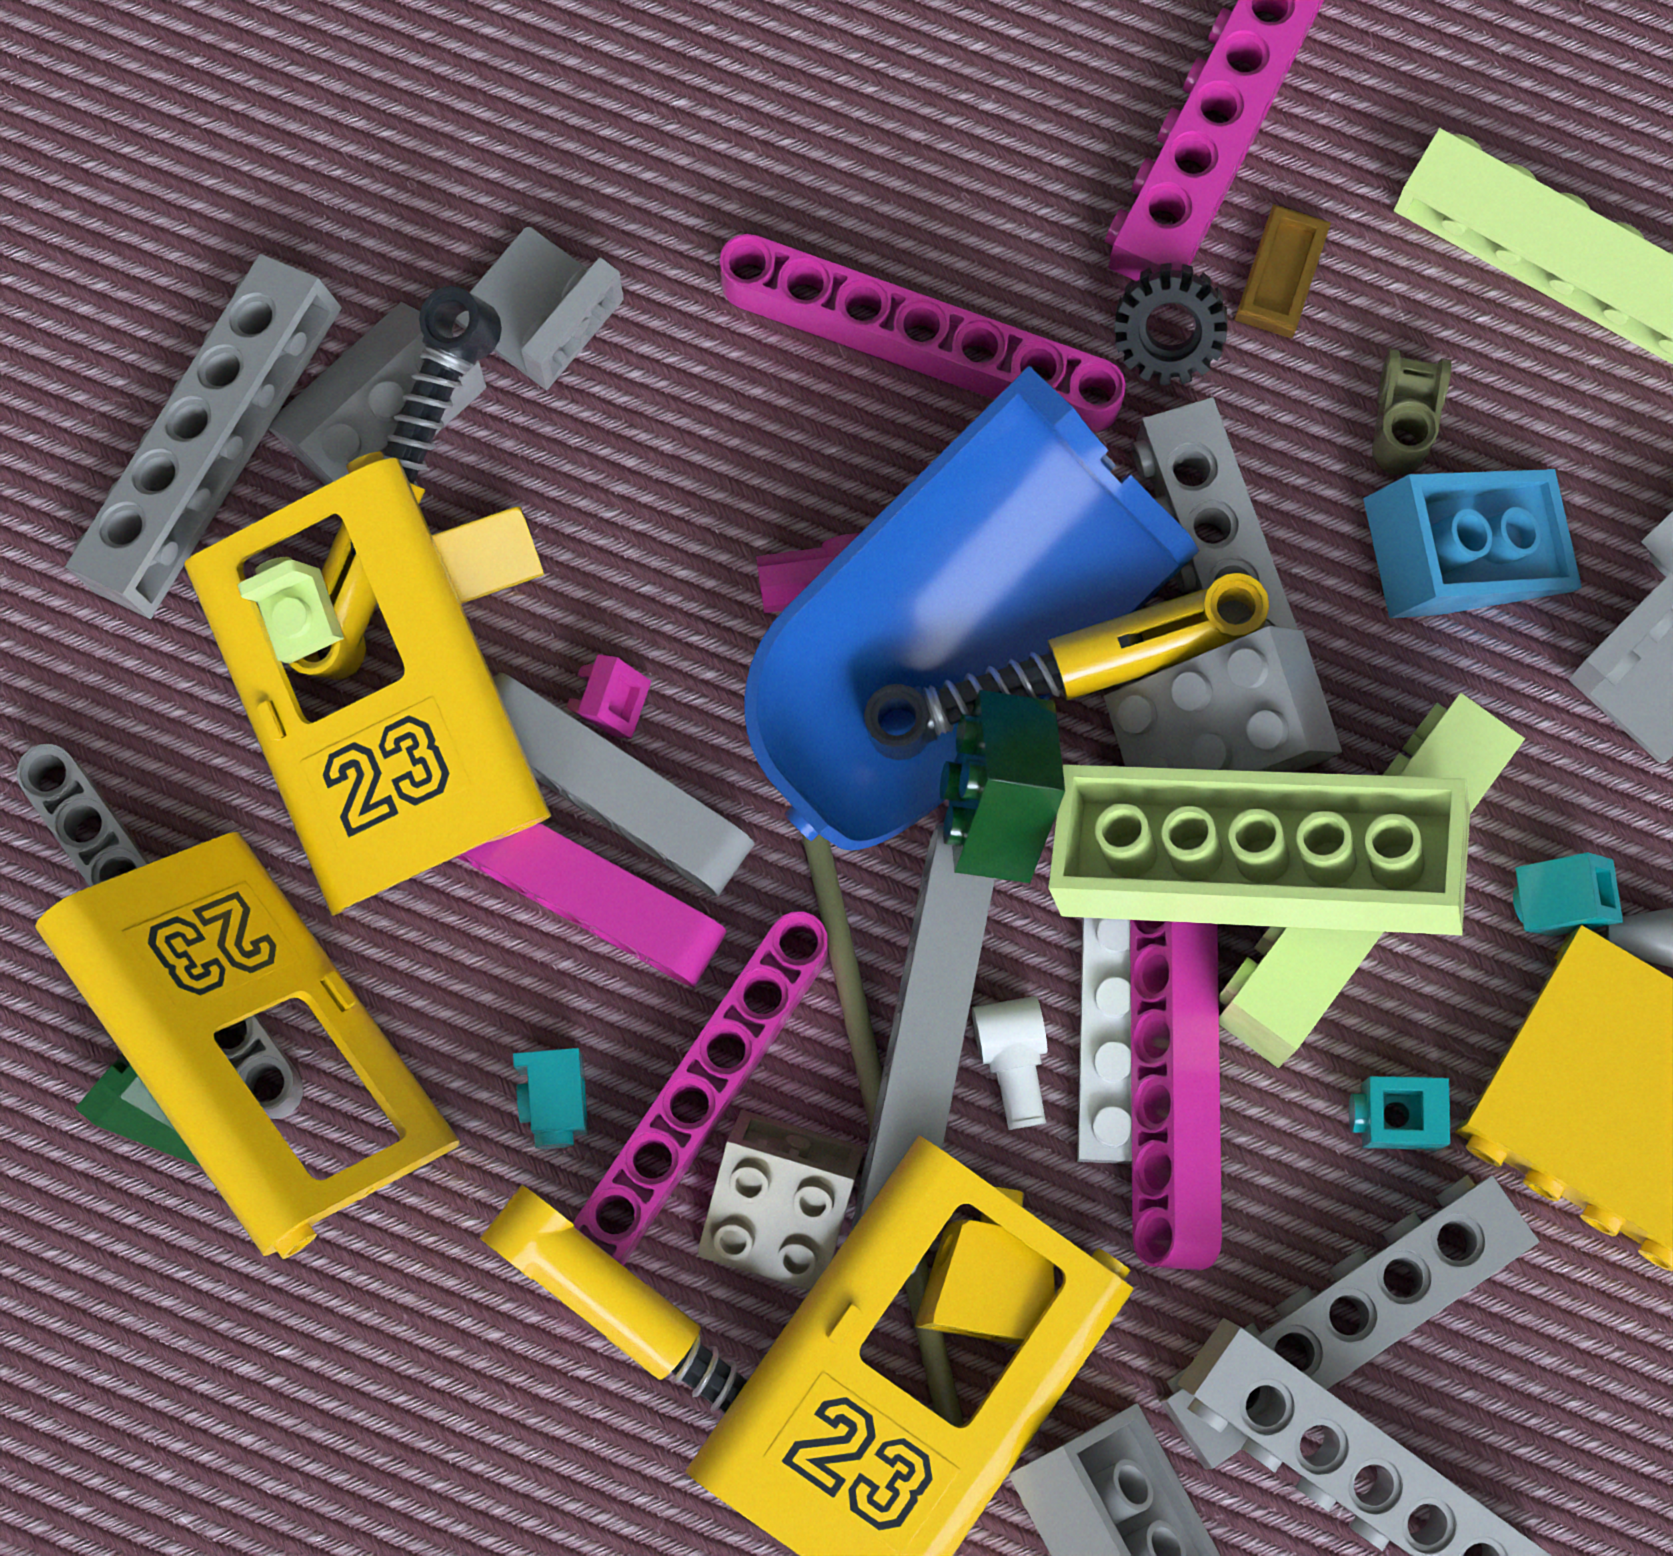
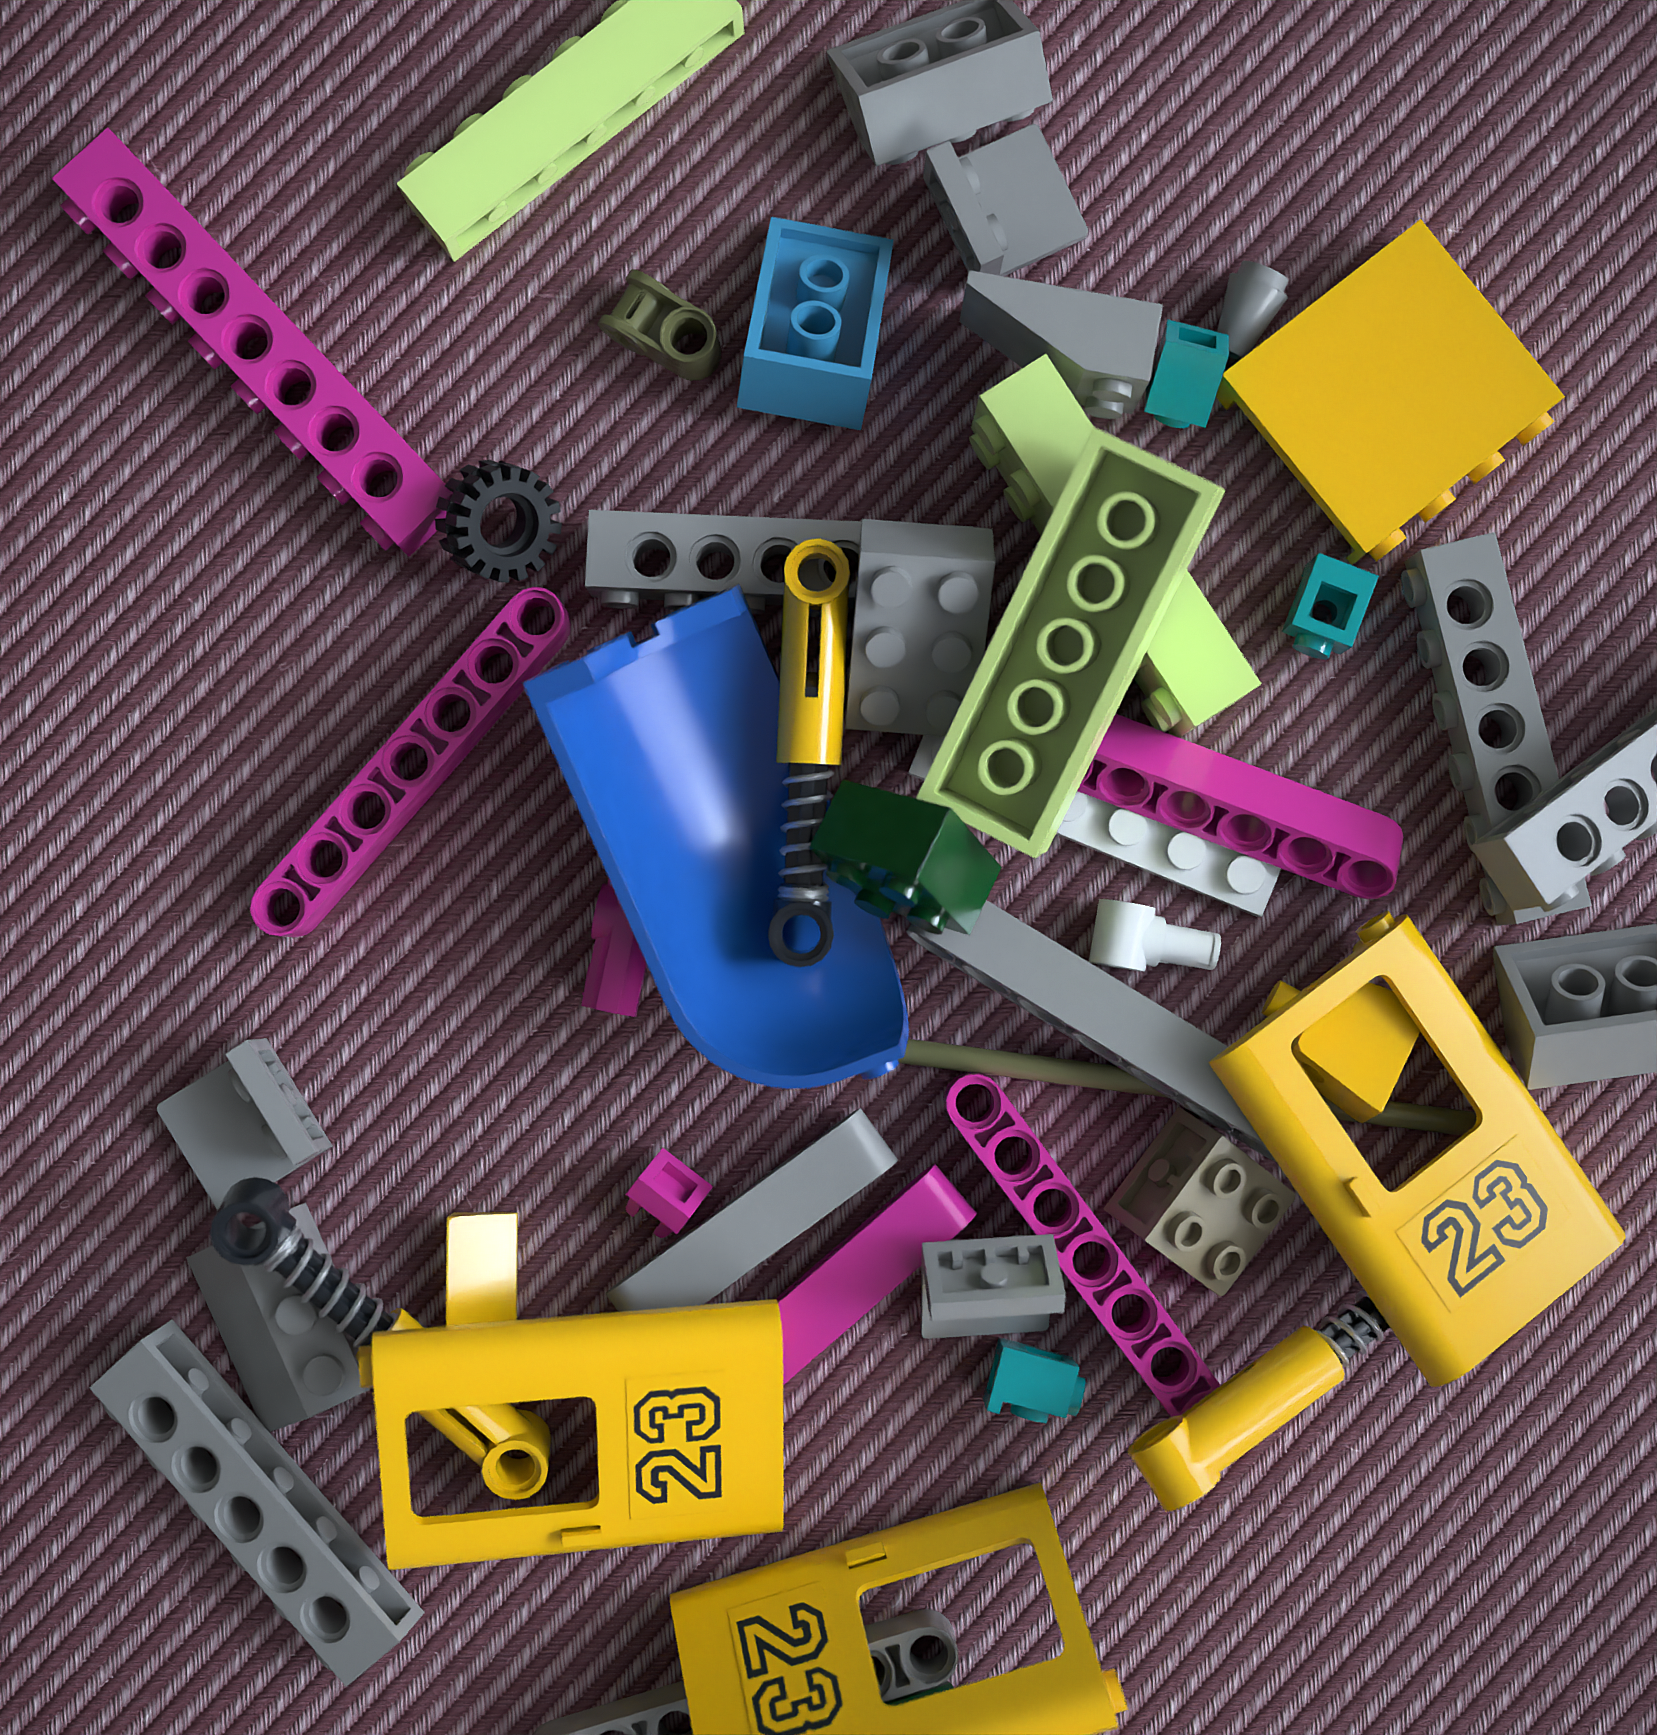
camera: 70 degrees left, 10 degrees up
(293, 607) = (477, 1478): yellowish green bracket -> none
(628, 1012) = (989, 1286): none -> light grey bracket
(1282, 271) = (477, 391): pearl gold tile -> none
(1555, 781) = (1093, 339): none -> light grey slope

